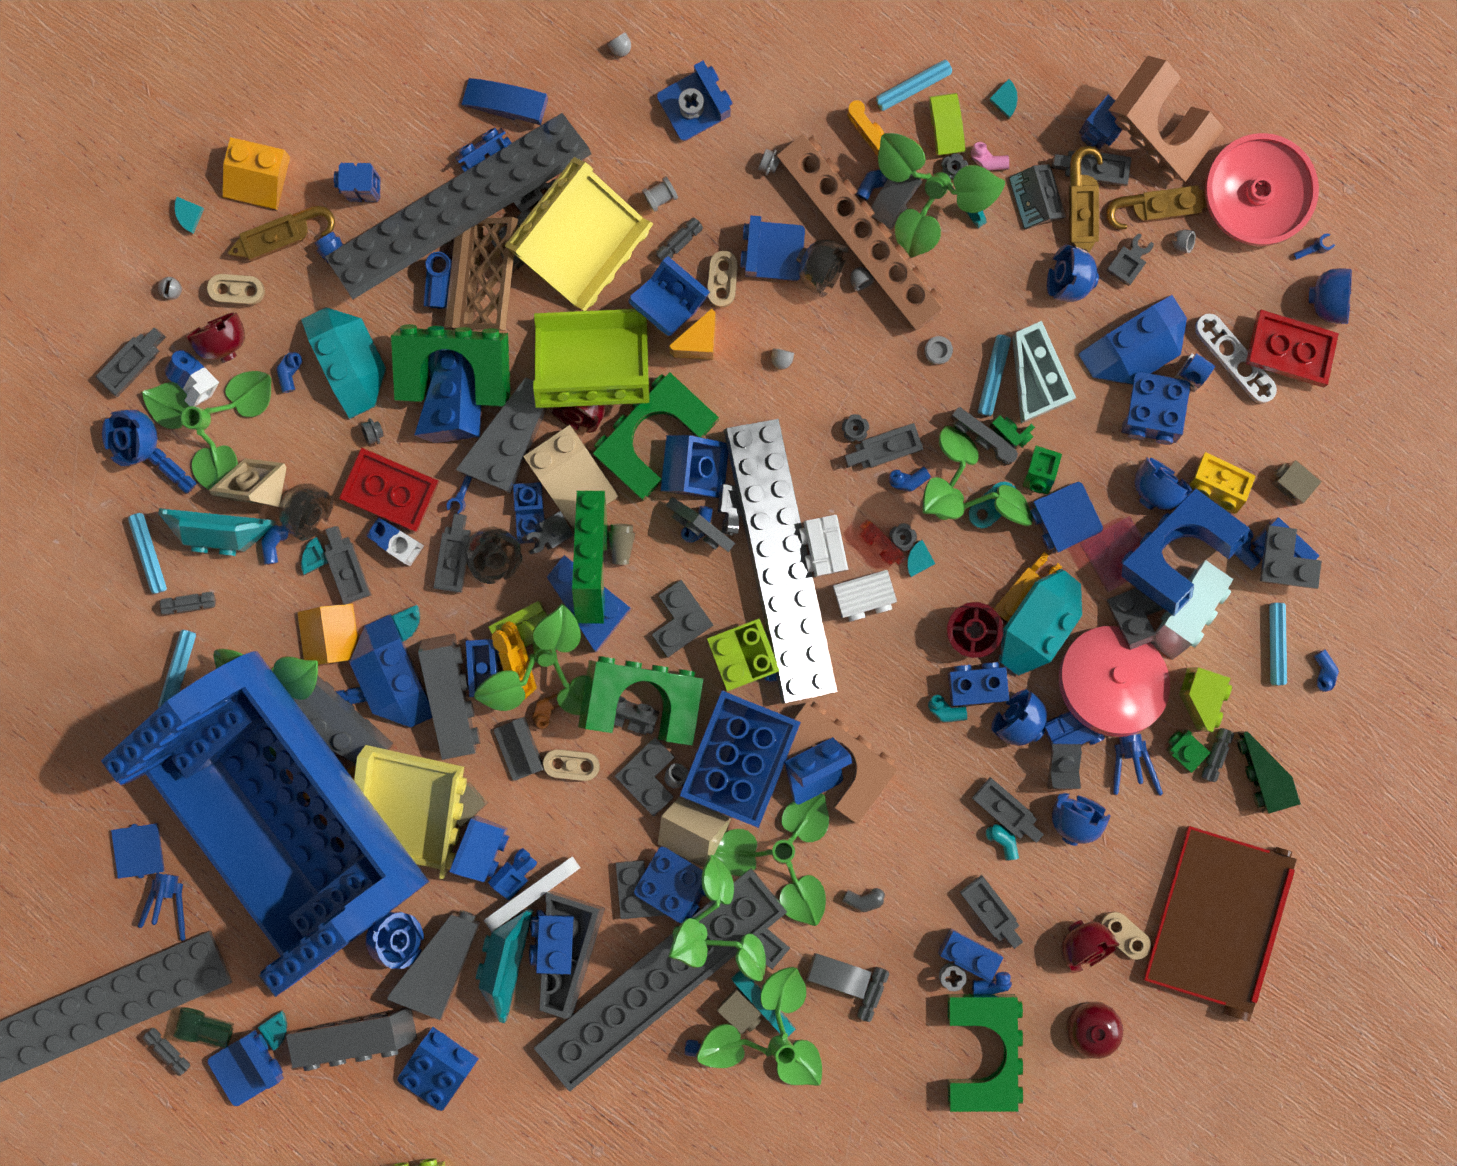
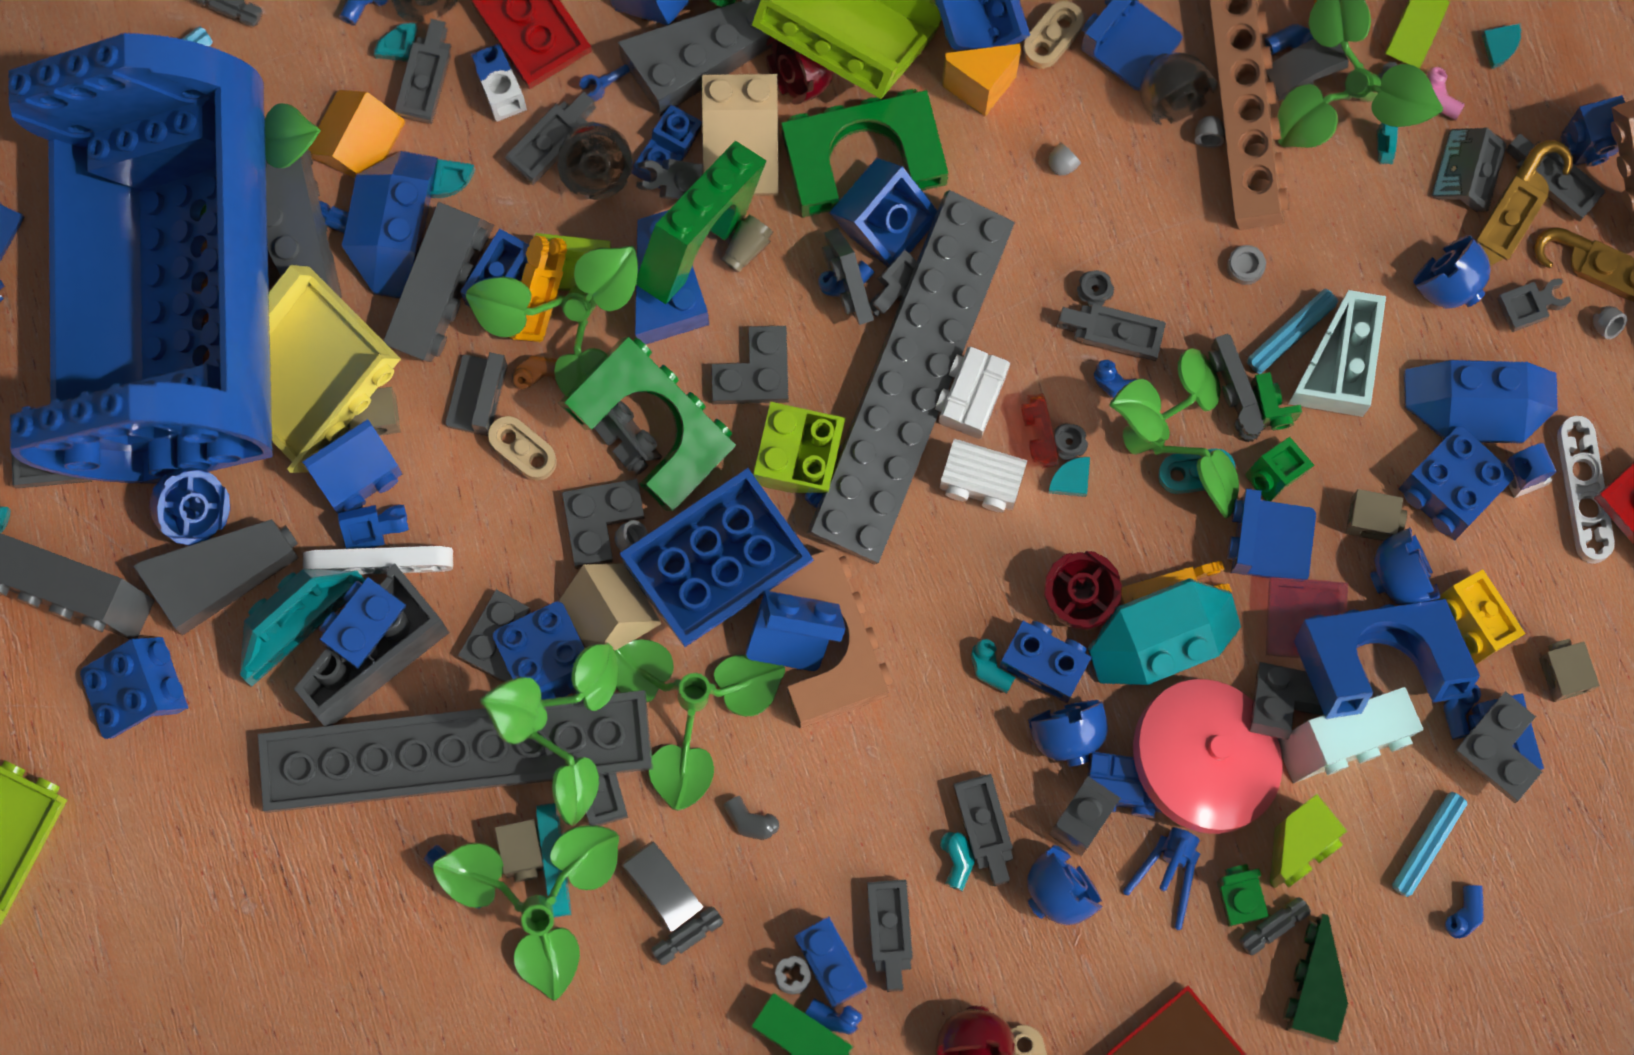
camera: 30 degrees right, 10 degrees down
(1120, 461) = (1375, 515): none -> dark tan brick

